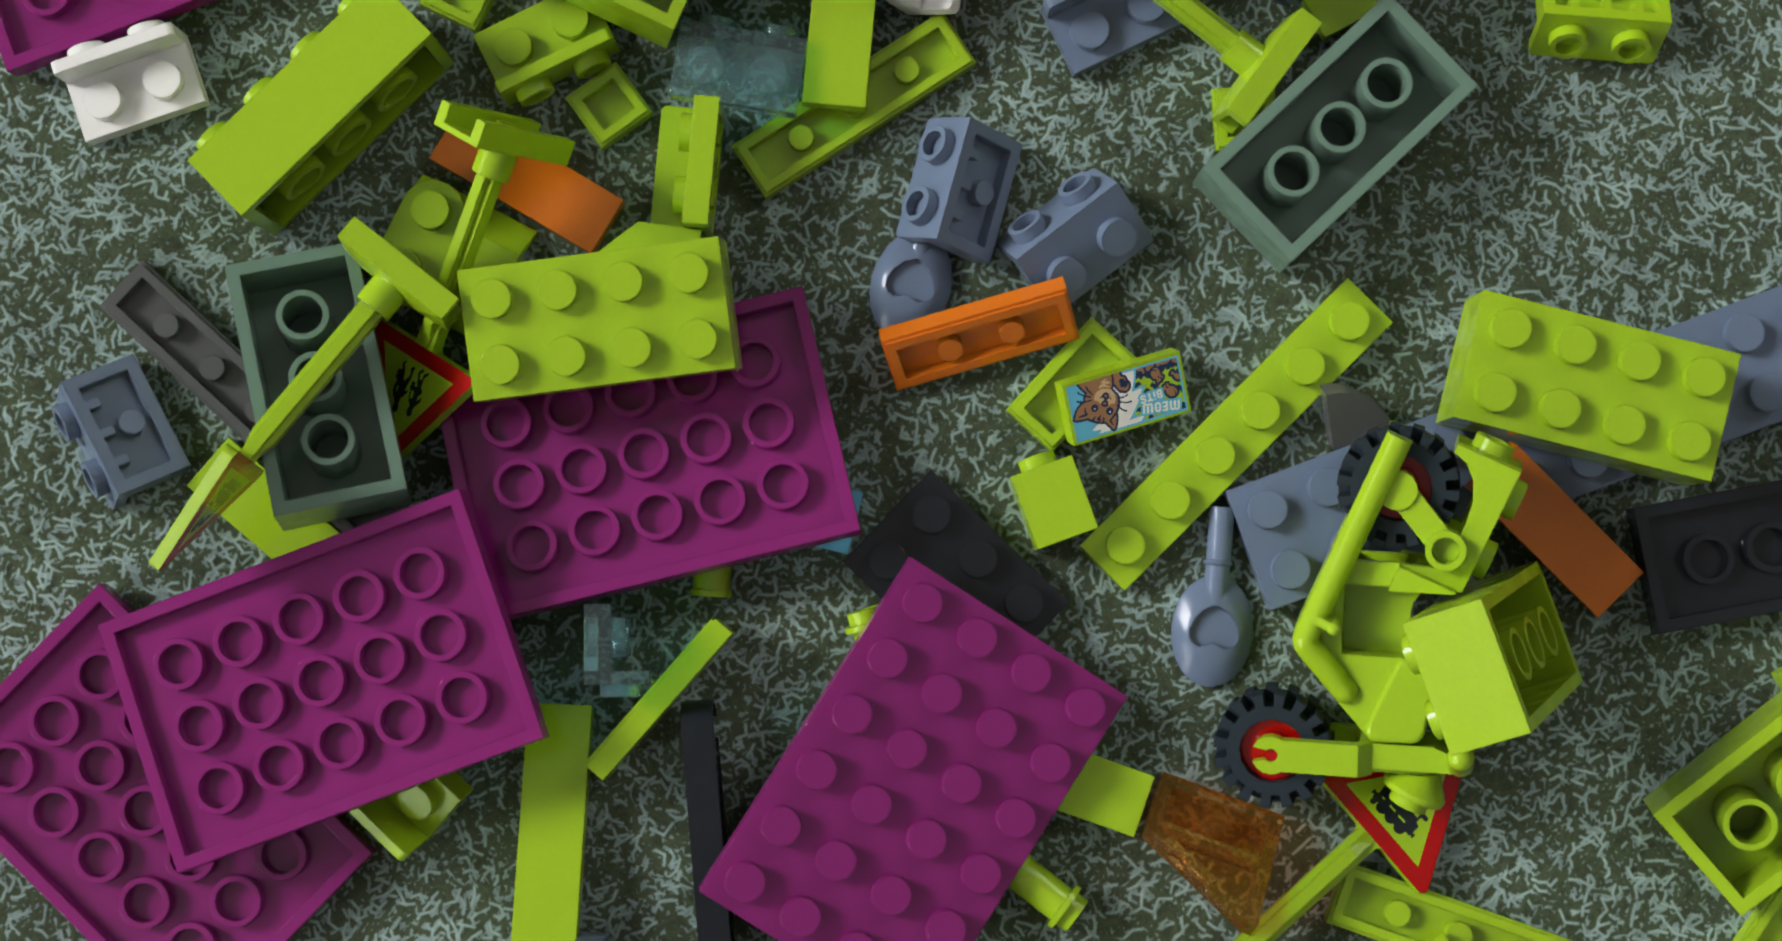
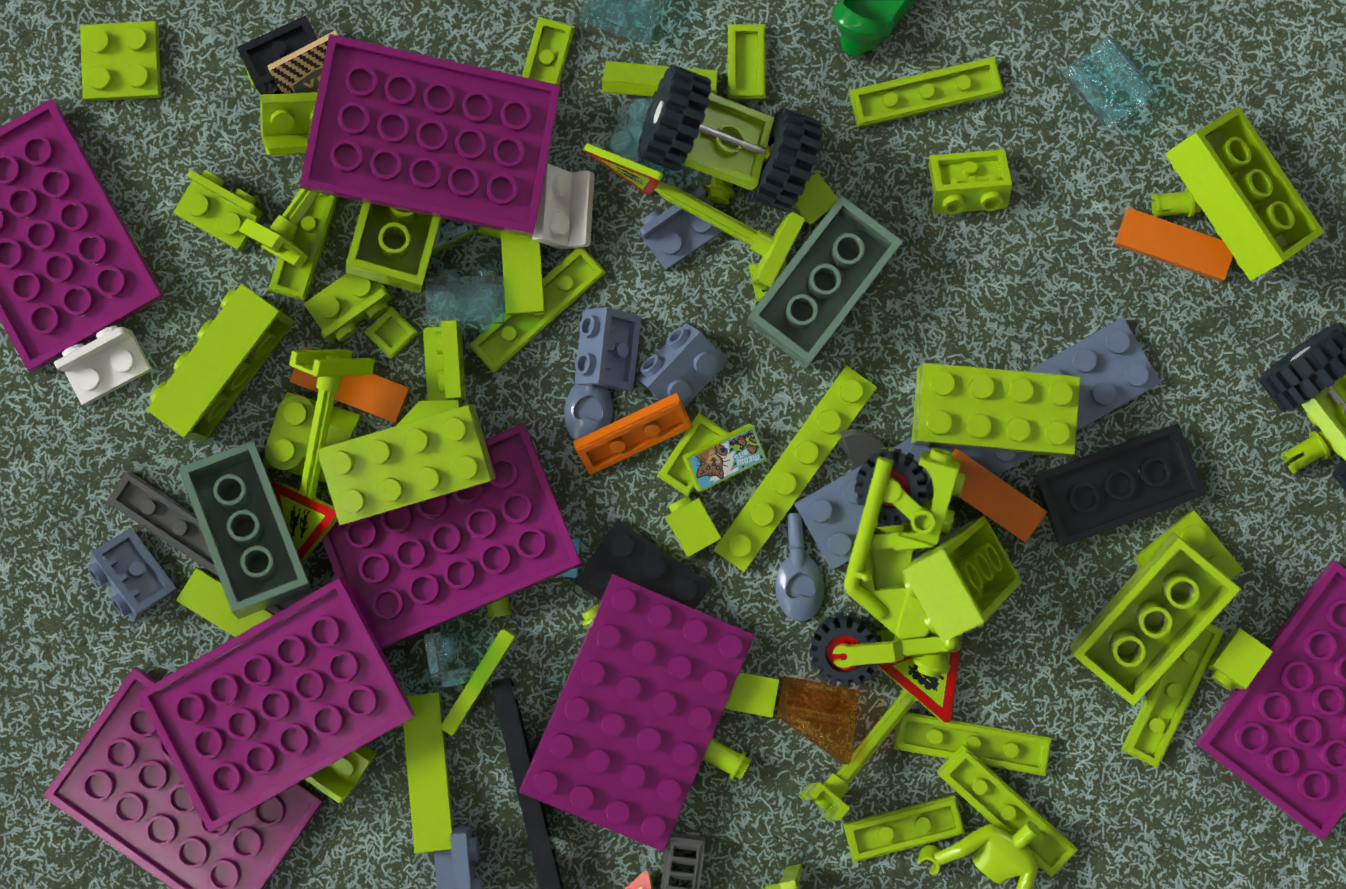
camera: 15 degrees left, 0 degrees up
(234, 471) = (279, 463): lime piece -> none

